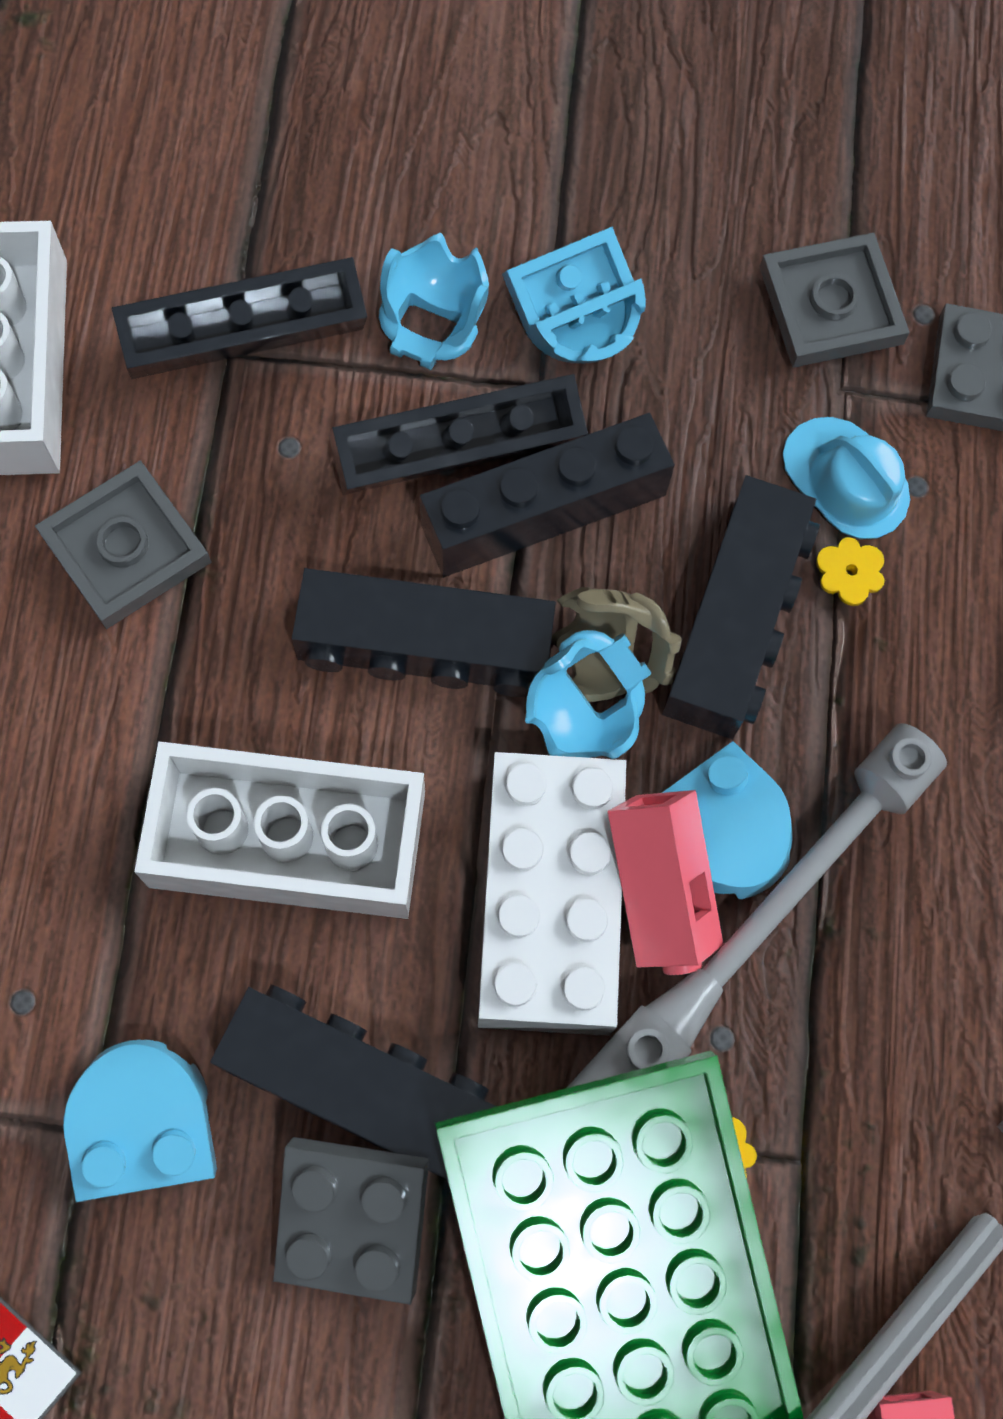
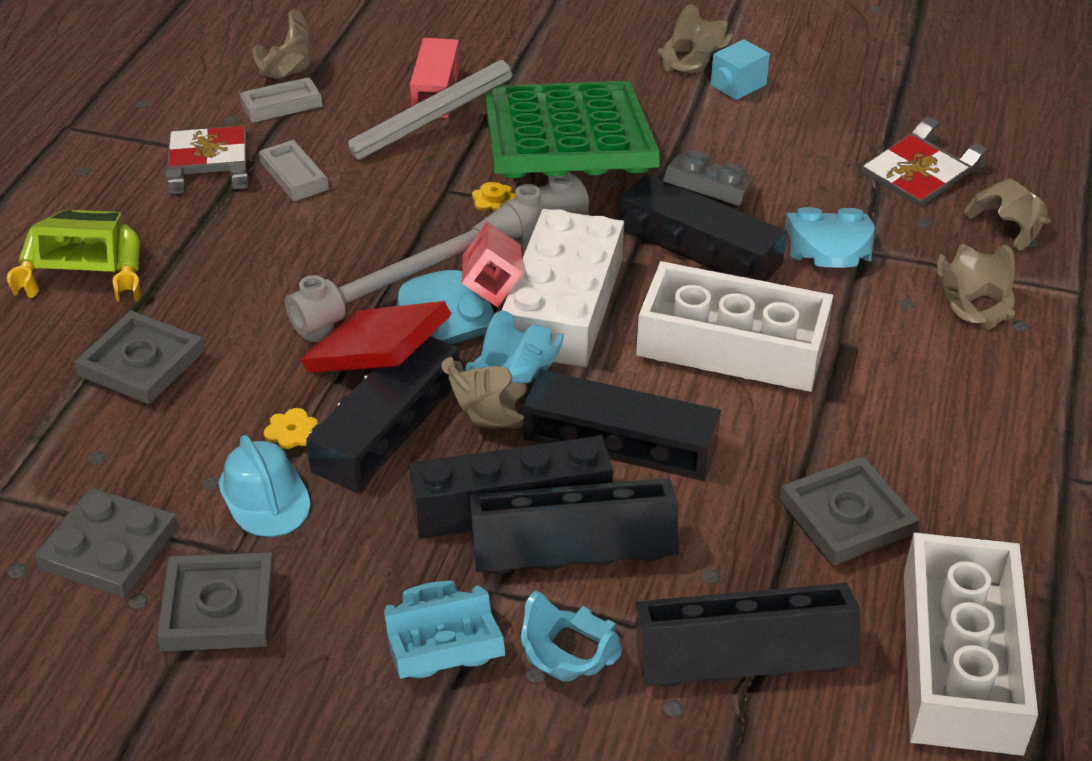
camera: 165 degrees left, 30 degrees down
(789, 702) = (376, 337): none -> red tile

